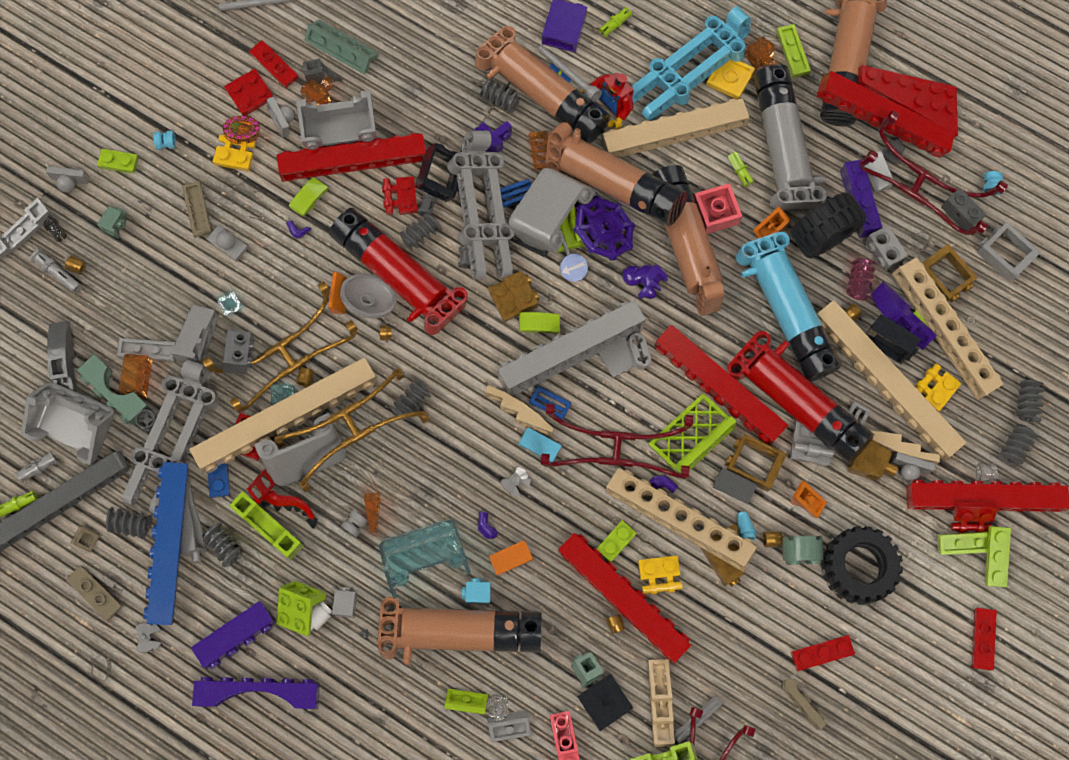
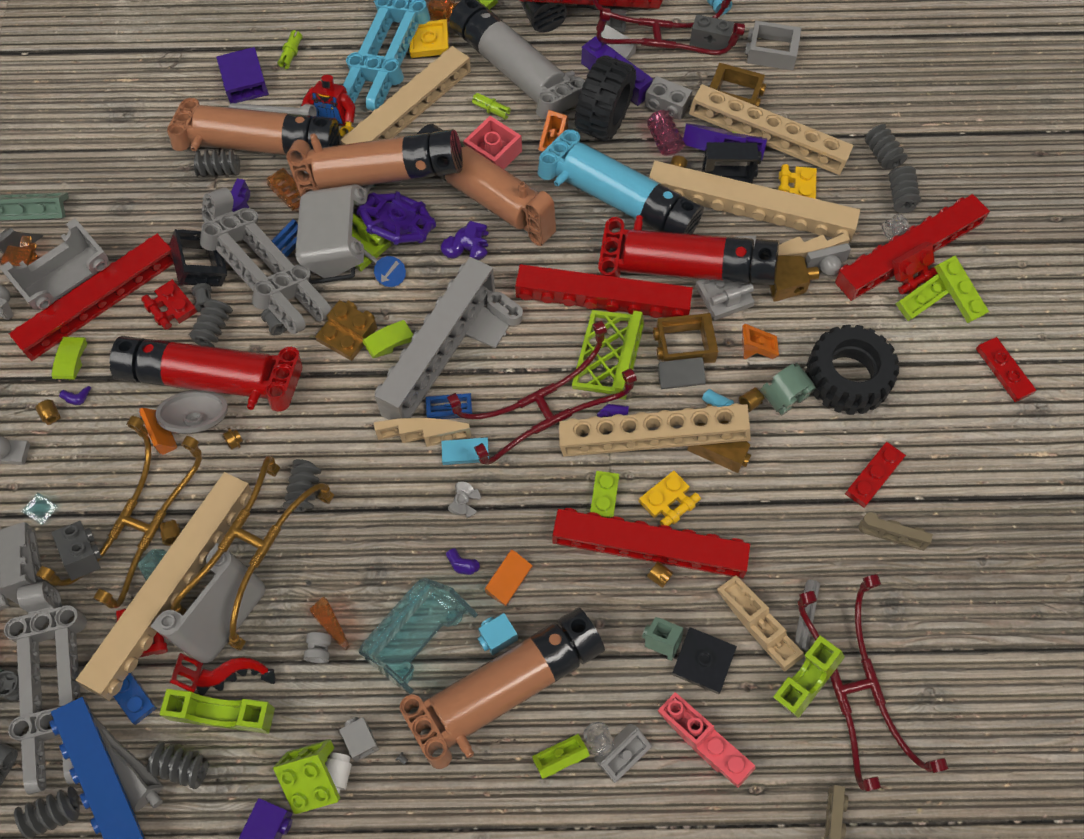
camera: 30 degrees left, 10 degrees down
(272, 231) = (48, 411): none -> pearl gold hose

